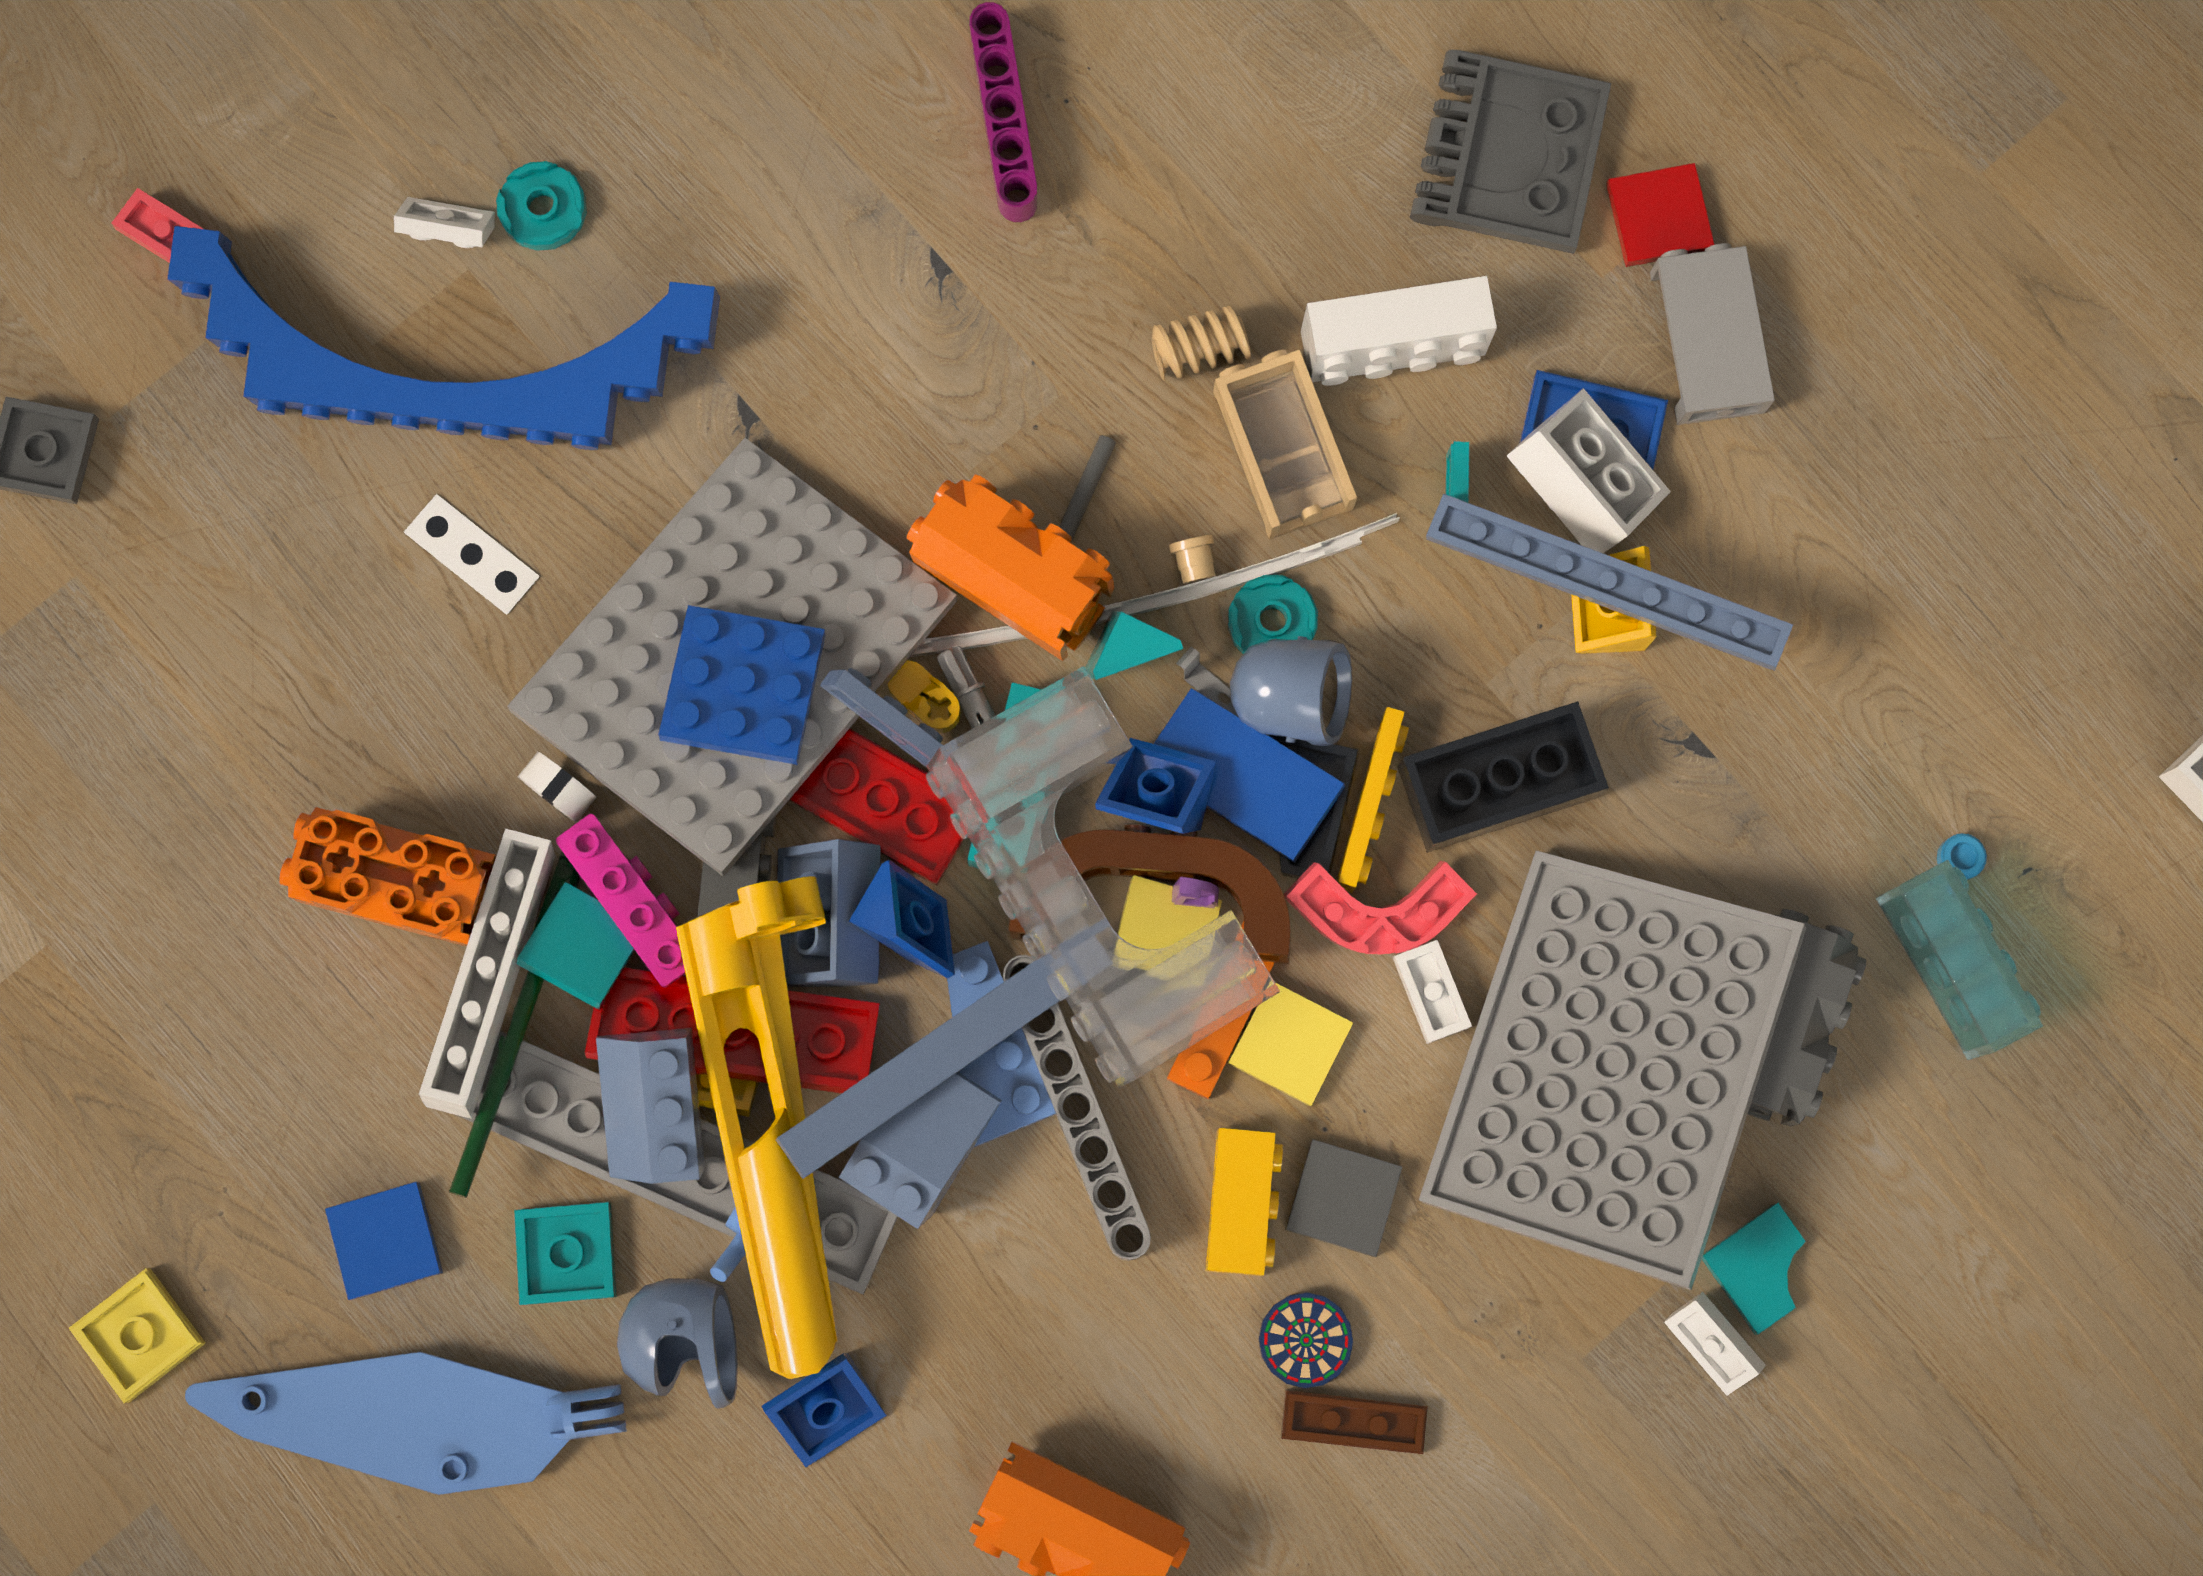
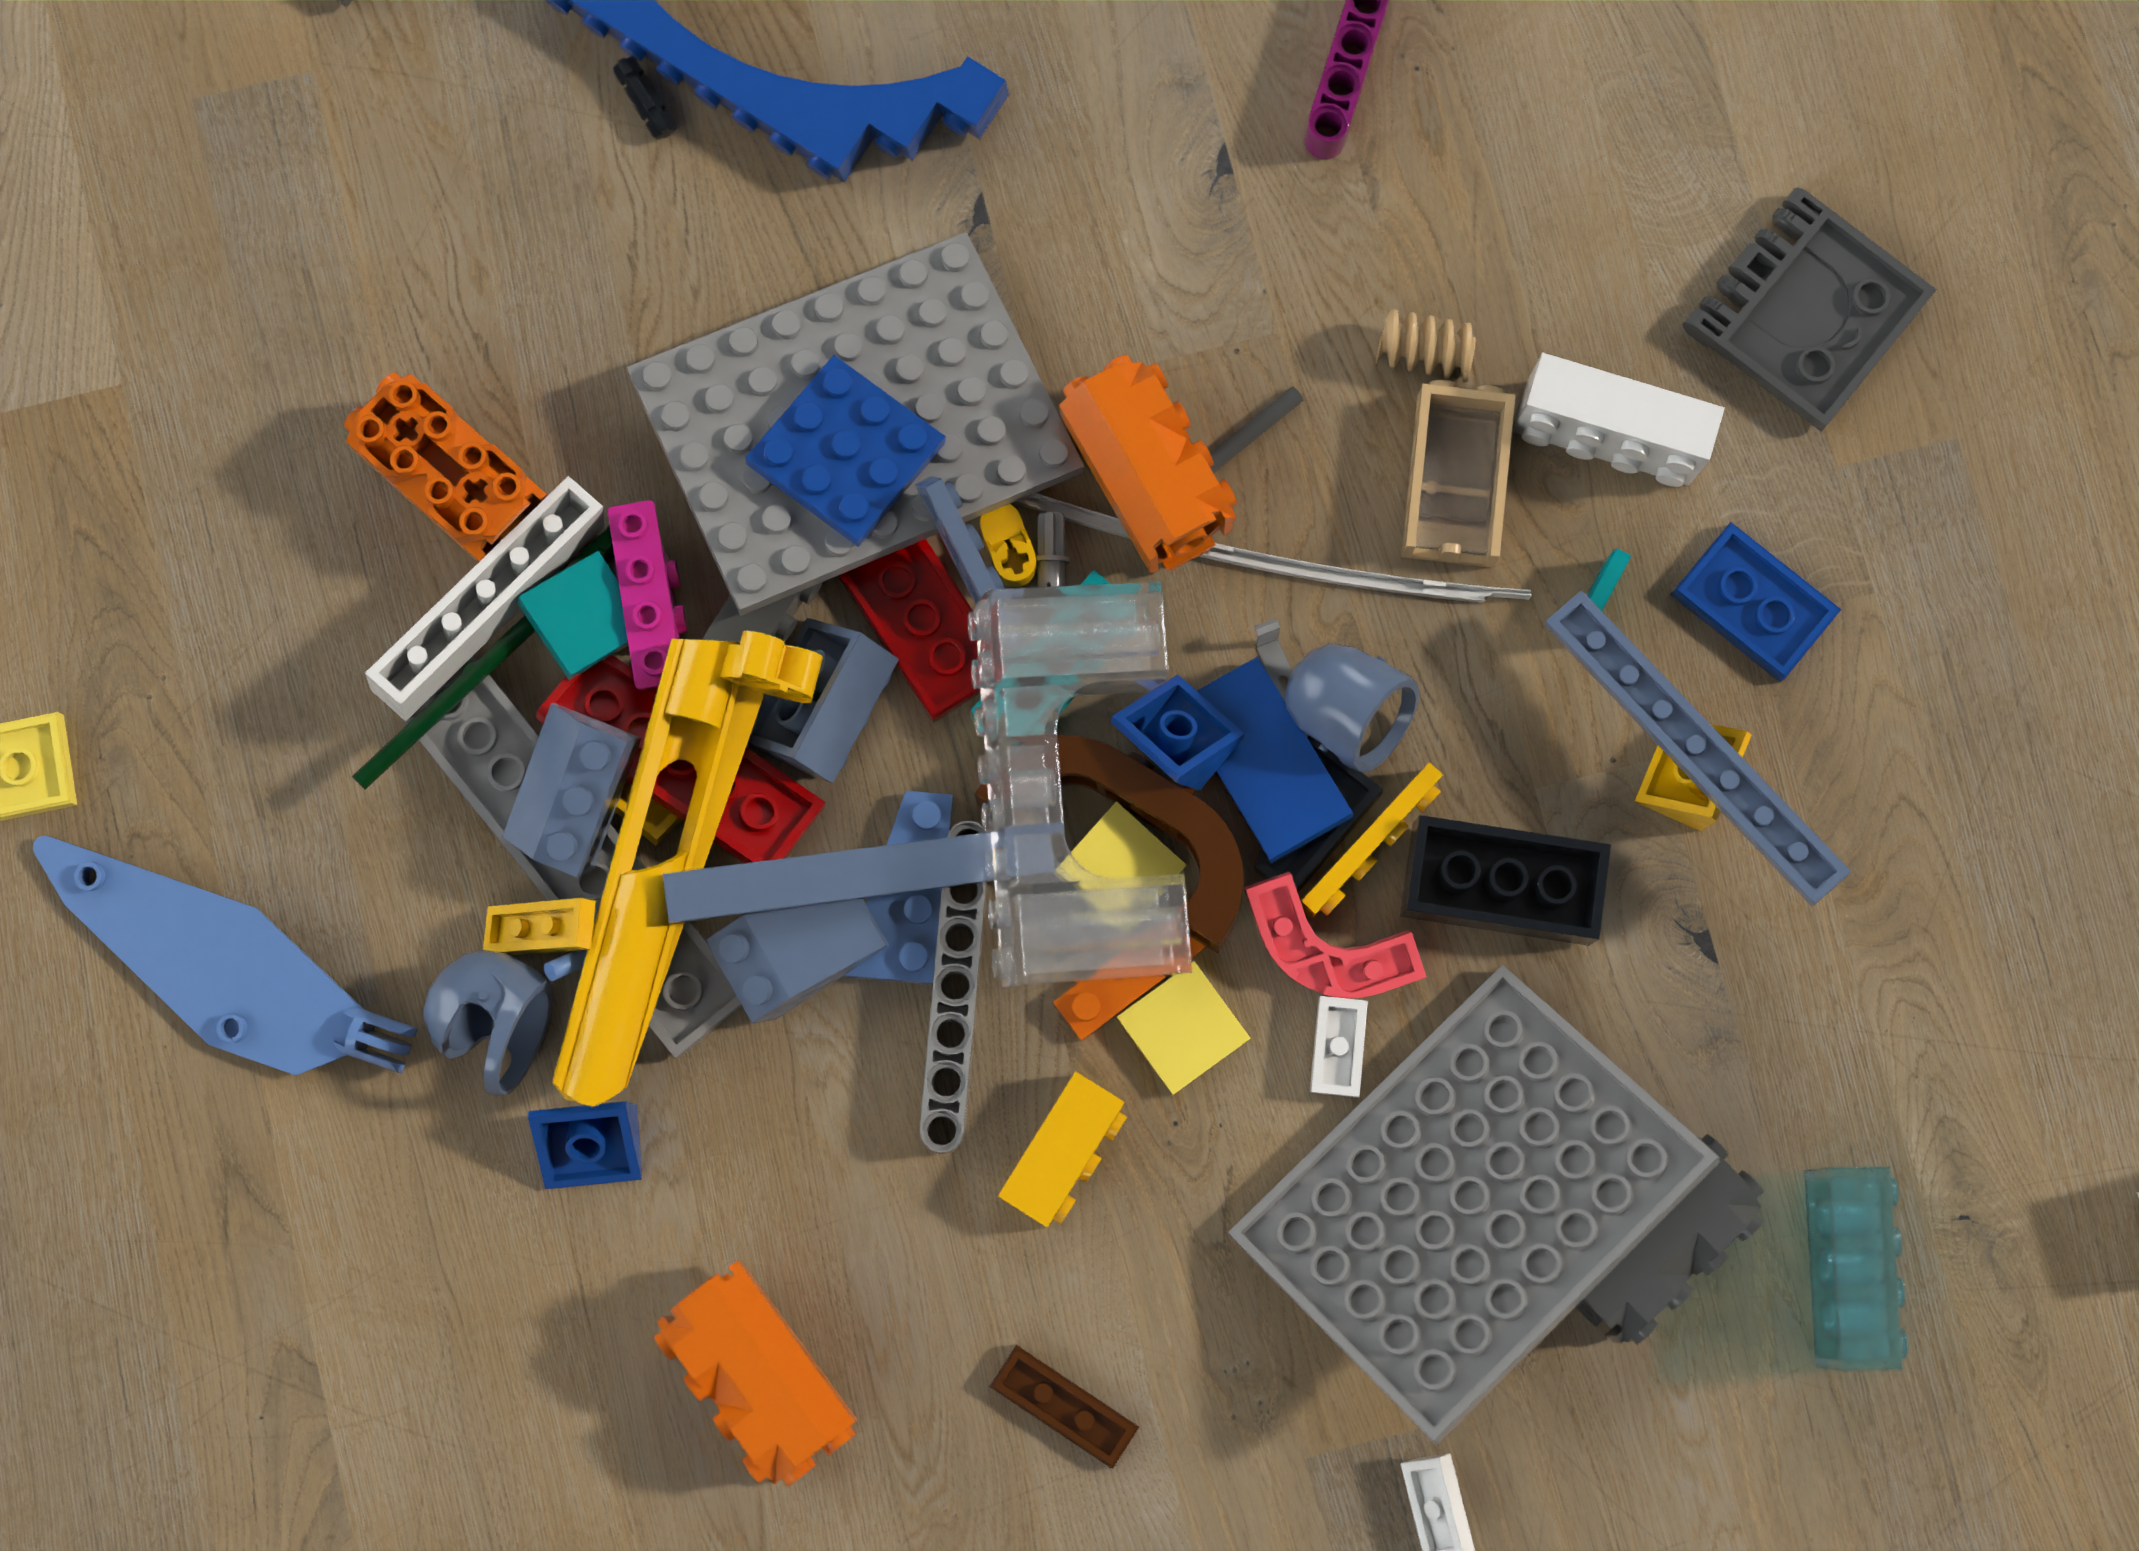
camera: 30 degrees right, 0 degrees up
(383, 1241) = (277, 793): blue tile -> none
(393, 455) = (644, 97): none -> black axle
(471, 554) = (669, 220): white sticker -> none
(557, 786) = (635, 462): white piece -> none
(565, 1253) = (430, 886): teal tile -> none
(686, 1240) = (540, 927): none -> yellow plate
(907, 919) = (888, 736): blue slope -> none
(1126, 644) = (1218, 586): teal slope -> none
(1194, 558) = (1321, 539): tan piece -> none
(1195, 893) = (1164, 845): medium lavender tile -> none
(1271, 593) = (1370, 605): teal tile -> none
(1305, 1340) = (1057, 1308): dark blue tile -> none
(1343, 1198) = (1160, 1195): dark grey tile -> none
(1589, 474) = (1730, 640): white slope -> none
(1659, 213) = (1921, 434): red tile -> none
(1714, 333) = (1916, 568): light grey panel -> none
(1754, 1267) = (1512, 1455): teal tile -> none
(1964, 853) = (1910, 1170): dark azure tile -> none

